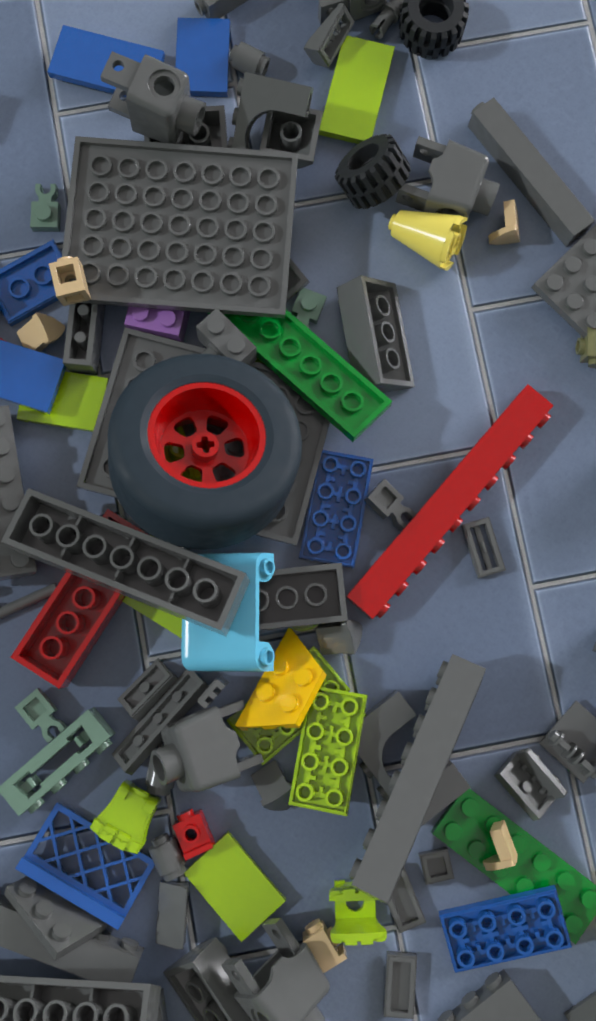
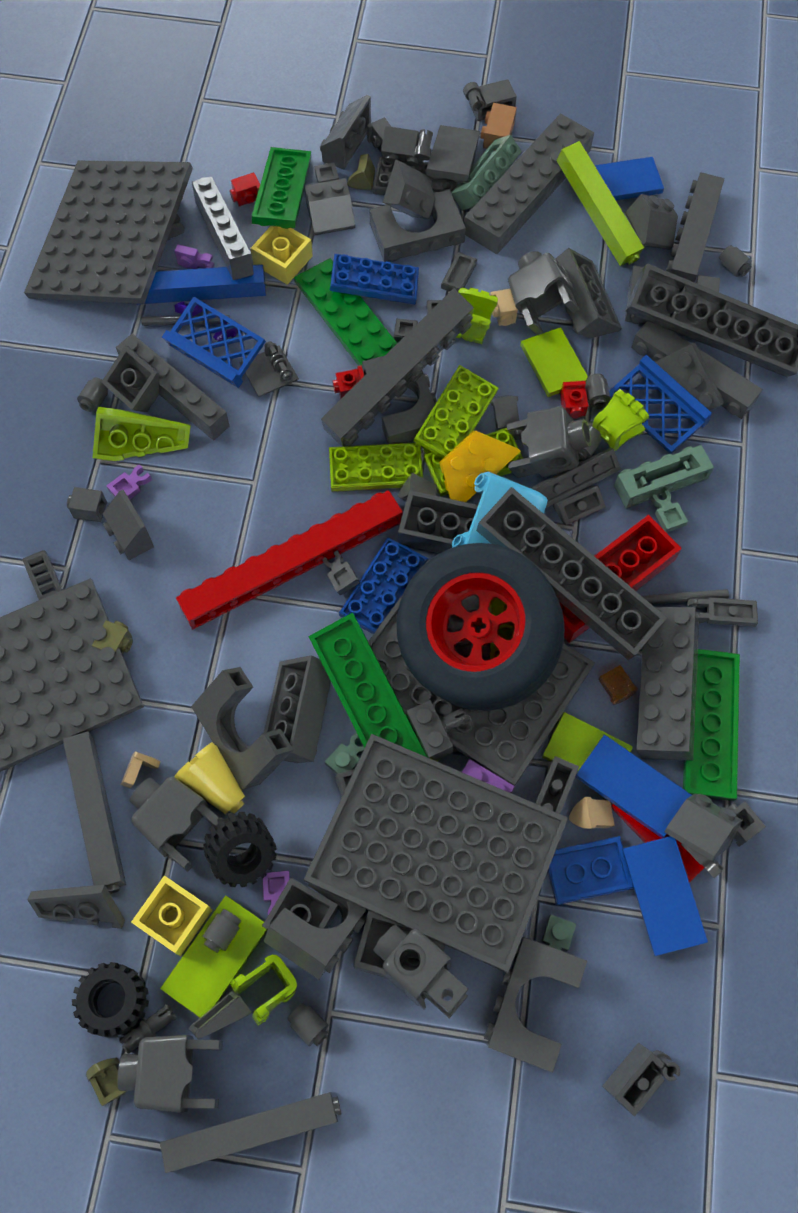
camera: 160 degrees left, 15 degrees down
(47, 480) = (618, 685): none -> clear orange tile
(53, 107) = (507, 1032): none -> dark grey arch
(64, 270) = (557, 811): tan brick -> none
(83, 55) = (454, 1075): blue tile -> none
(172, 914) = (605, 357): dark grey slope -> none
(204, 54) = (353, 1051): blue tile -> none
(212, 691) = (532, 475): dark grey tile -> none
(290, 57) = (273, 962): none -> lime piece
(324, 162) = (274, 885): none -> medium lavender plate
(359, 102) = (221, 931): none -> dark grey brick
(401, 264) = (216, 713): none -> dark grey arch
(401, 655) = (373, 466): none -> lime tile
(410, 101) = (172, 916): none -> light yellow brick
(463, 755) = (347, 380): none -> red brick
(473, 552) = (278, 537): dark grey tile -> none
(506, 852) = (355, 316): tan tile -> none
(508, 84) = (83, 902): none -> dark grey wing
(530, 782) = (318, 355): dark grey bracket -> none

